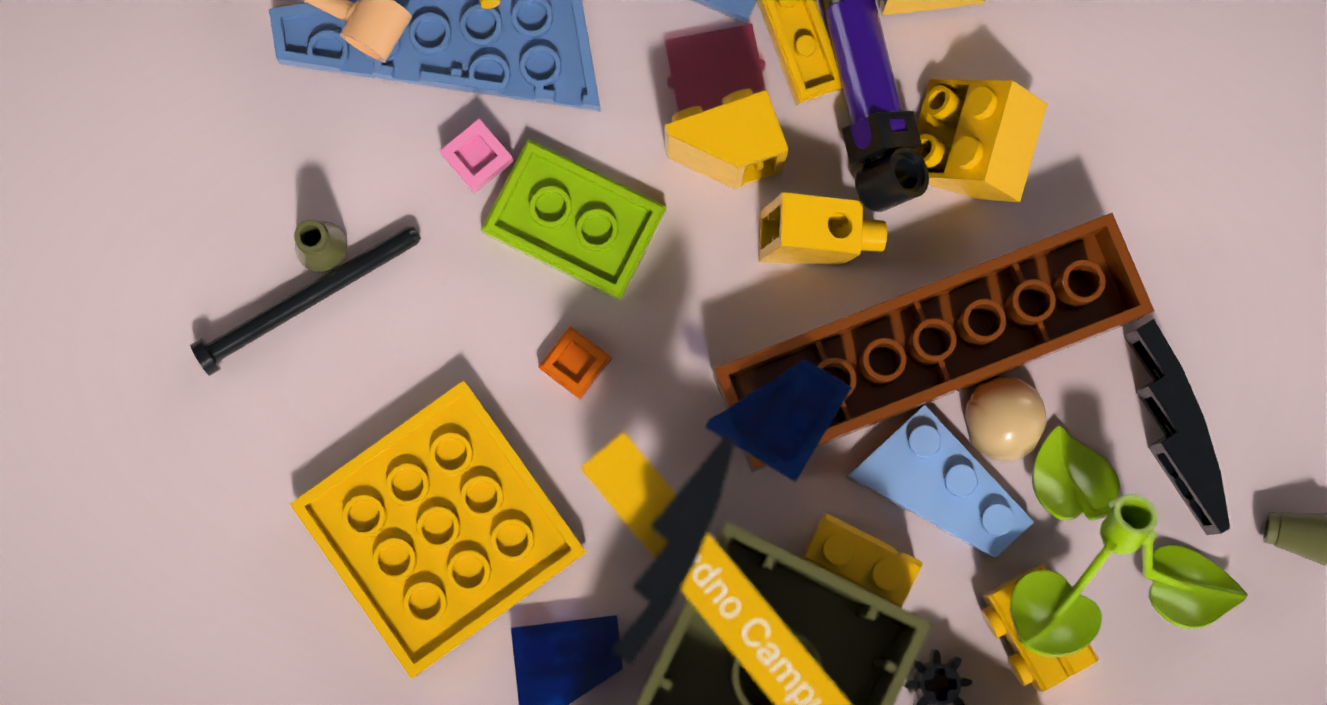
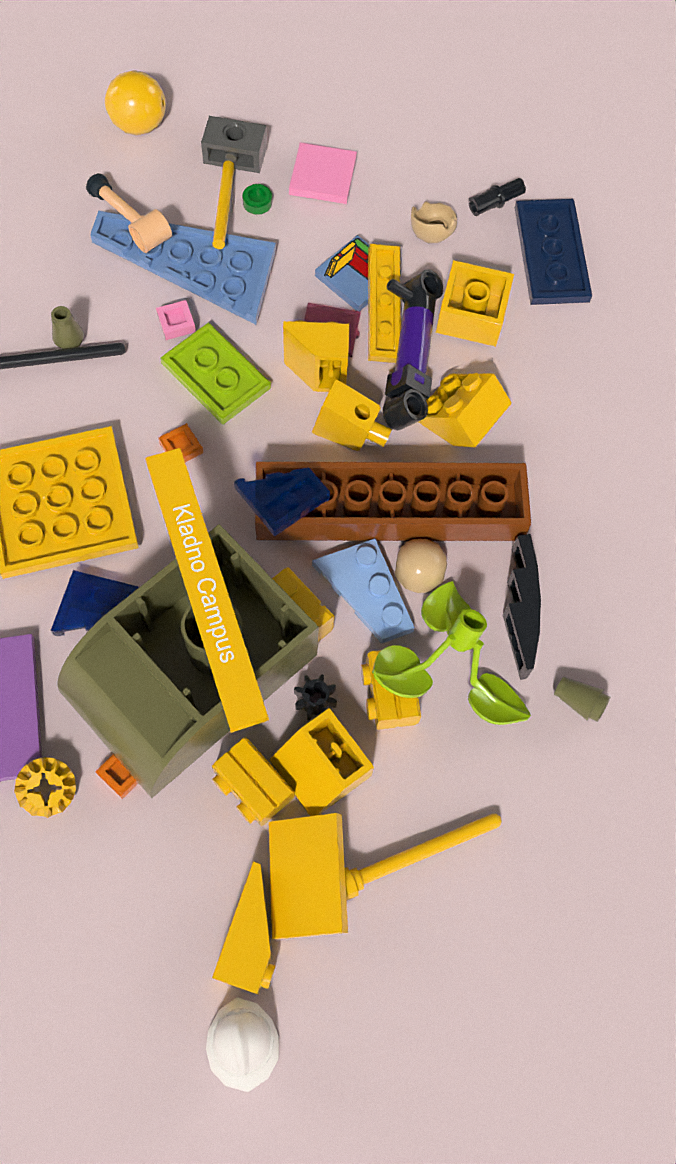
camera: 15 degrees right, 15 degrees down
(685, 527) = (189, 505): black slope -> none

